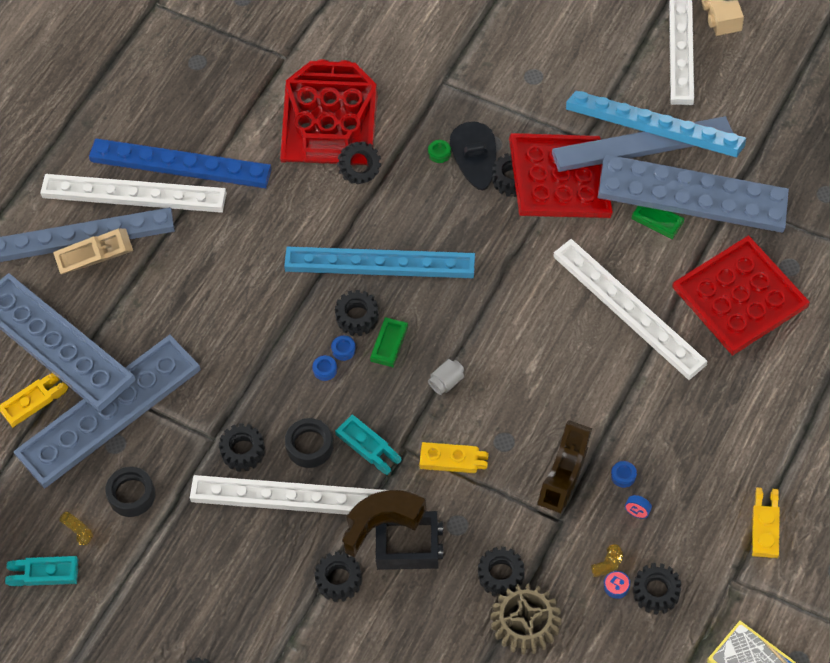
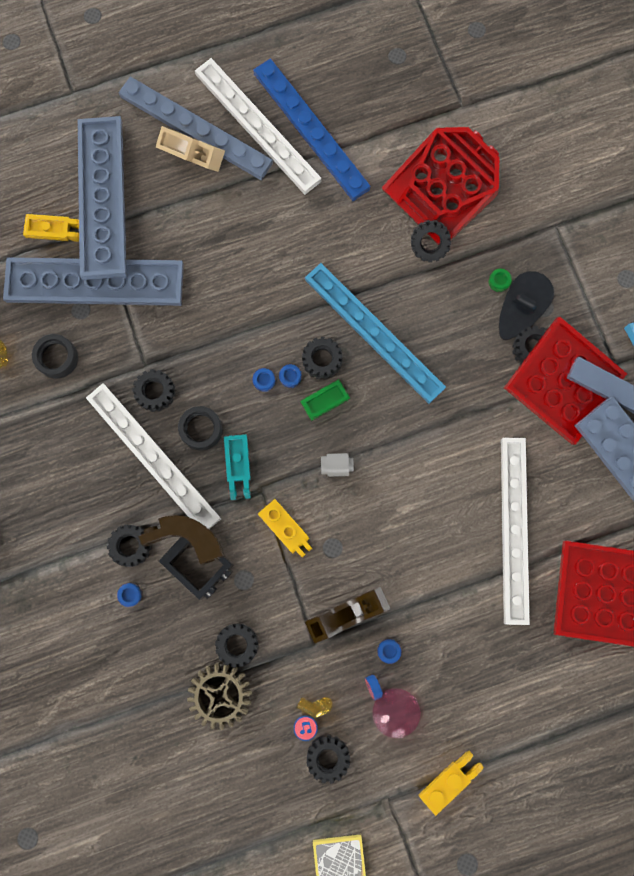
camera: 40 degrees right, 20 degrees up
(375, 615) = (129, 595): none -> blue tile
(661, 221) = (605, 482): green tile -> none
(674, 511) = (396, 713): none -> clear pink dish

